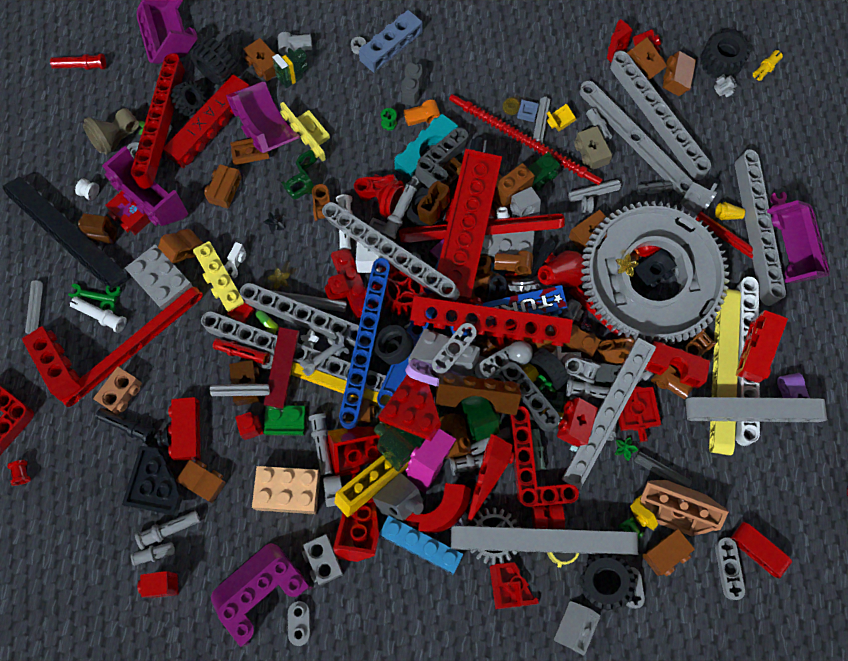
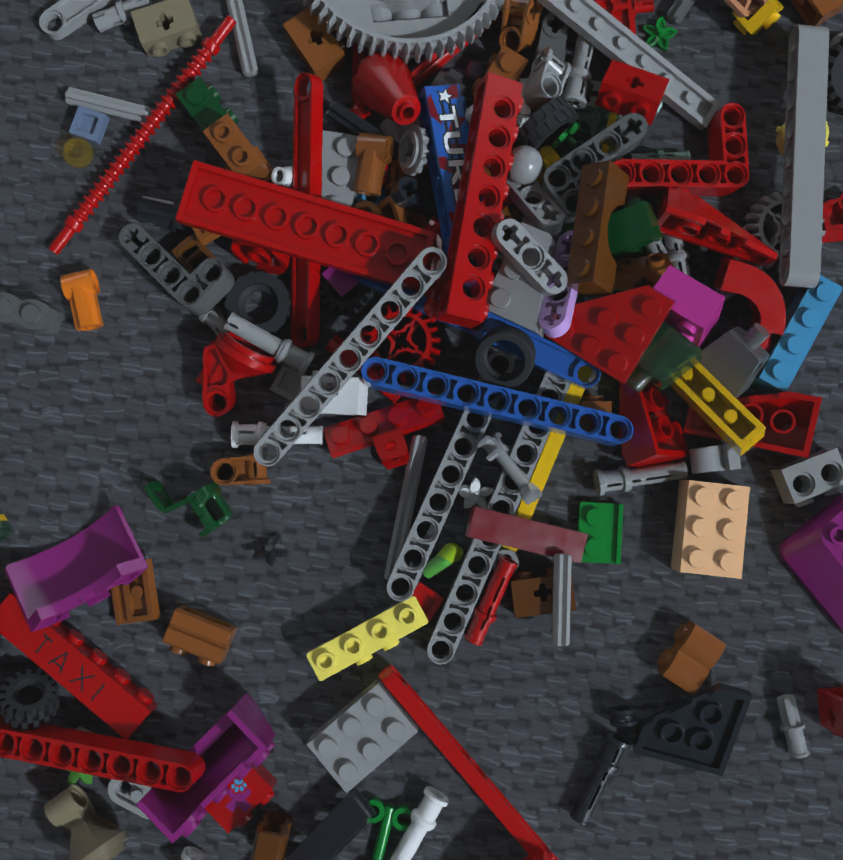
camera: 85 degrees left, 15 degrees up
(113, 388) = (541, 797): nougat brick -> none
(158, 532) = (766, 719): light grey pin -> none
(179, 245) = (307, 702): dark orange brick -> none
(184, 429) = (611, 685): red brick -> none
(235, 257) = (327, 609): white plate -> none
(249, 425) = (609, 586): red brick -> none
(279, 278) = (369, 541): clear yellow plant -> none
(309, 128) = (101, 489): light yellow bracket -> none
(391, 118) = (84, 350): green bush -> none
(407, 161) = (123, 272): teal arch -> none
(433, 203) = (265, 285): reddish brown brick -> none
(525, 203) = (272, 138): light grey brick -> none
(548, 517) = (763, 151): red wheel -> none
(561, 118) = (106, 71): yellow bracket -> none
(587, 204) = (267, 46): light grey bush -> none
(630, 522) = (771, 37): green bush -> none

